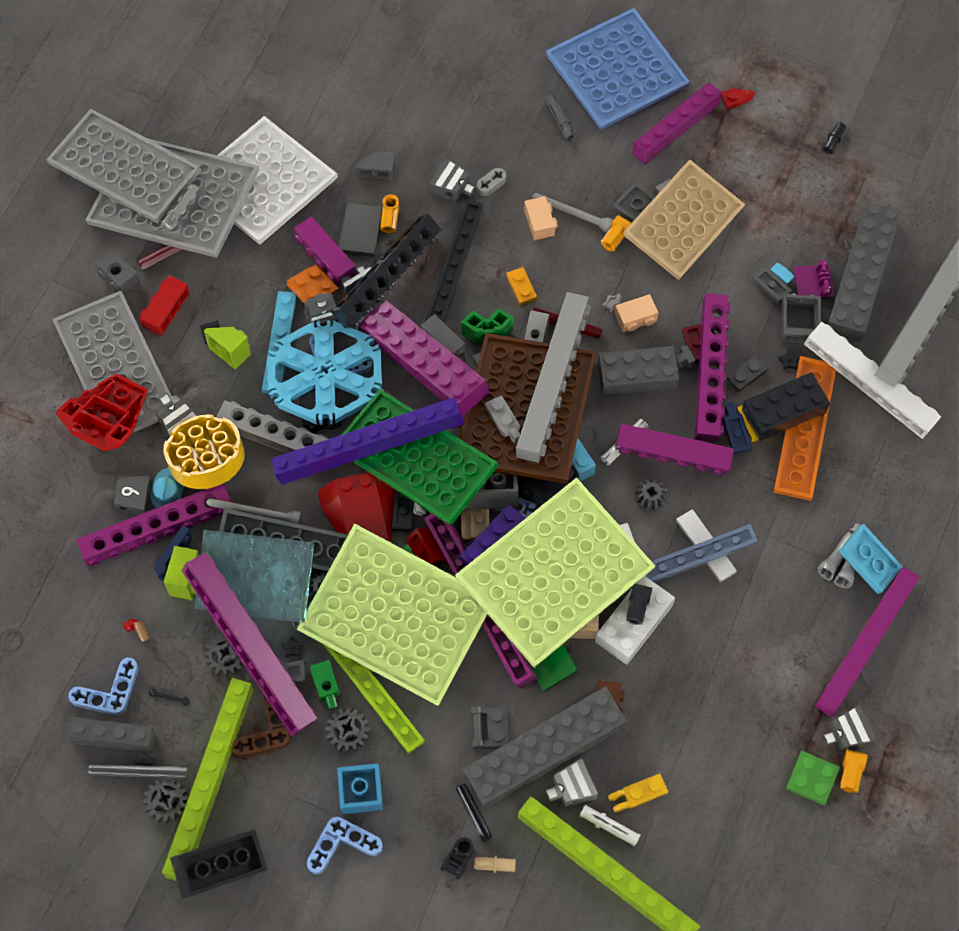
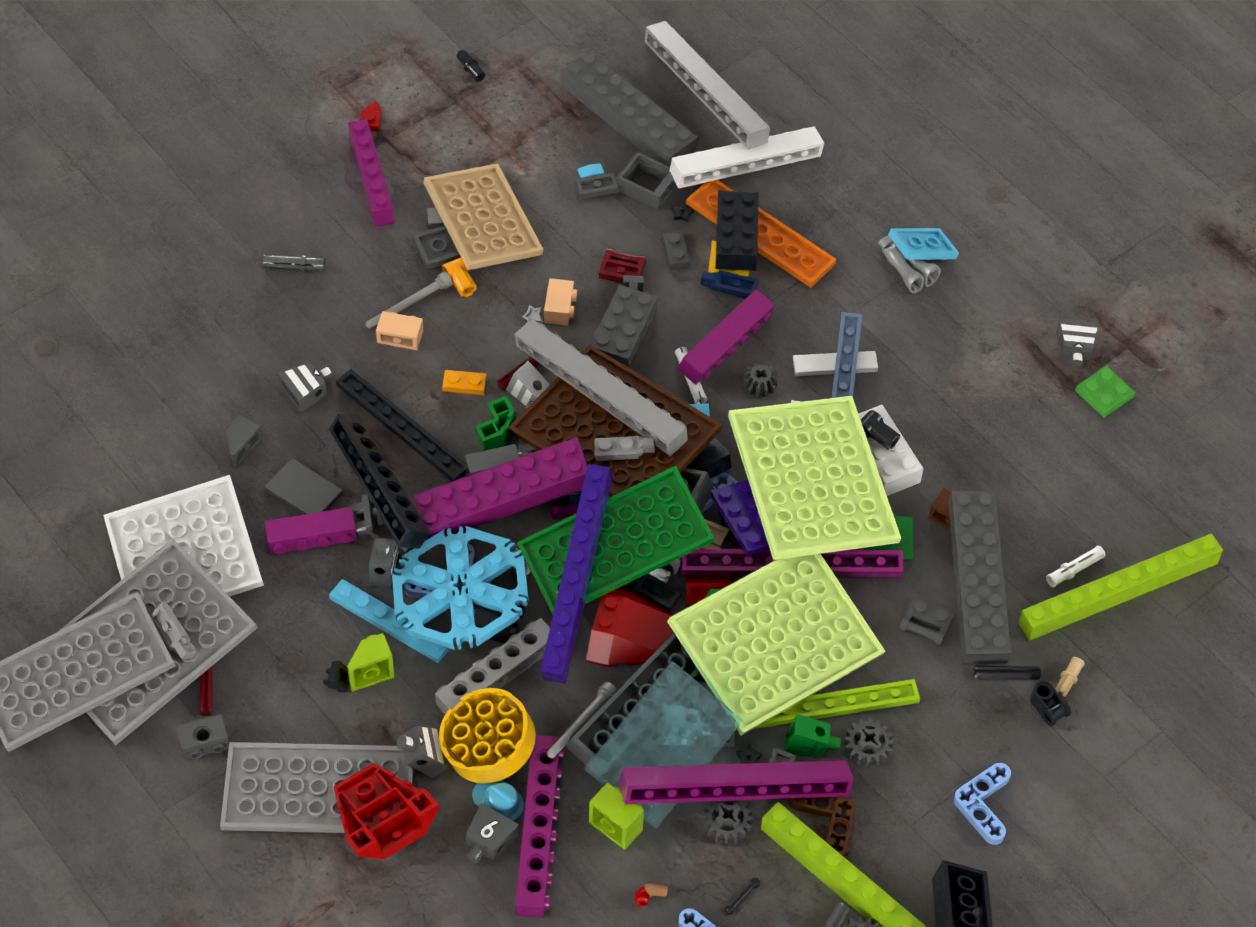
camera: 65 degrees left, 10 degrees down
(164, 305) = (275, 708): red brick -> none
(181, 539) = (582, 821): dark blue plate -> none
(310, 283) = (344, 560): orange plate -> none
(360, 788) = (939, 755): dark azure brick -> none
(389, 214) = (306, 454): light orange piece -> none
(489, 179) = (330, 352): light grey beam -> none
(573, 785) = (1022, 576): light grey torso -> none
(617, 68) = (270, 191): medium blue plate -> none
(640, 793) = (1054, 528): yellow hinge -> none
(703, 429) = (658, 268): magenta brick -> none
(814, 280) = (612, 152): magenta hinge -> none
(854, 765) = (1109, 353): light orange piece -> none
(867, 642) = (1000, 289): magenta beam -> none

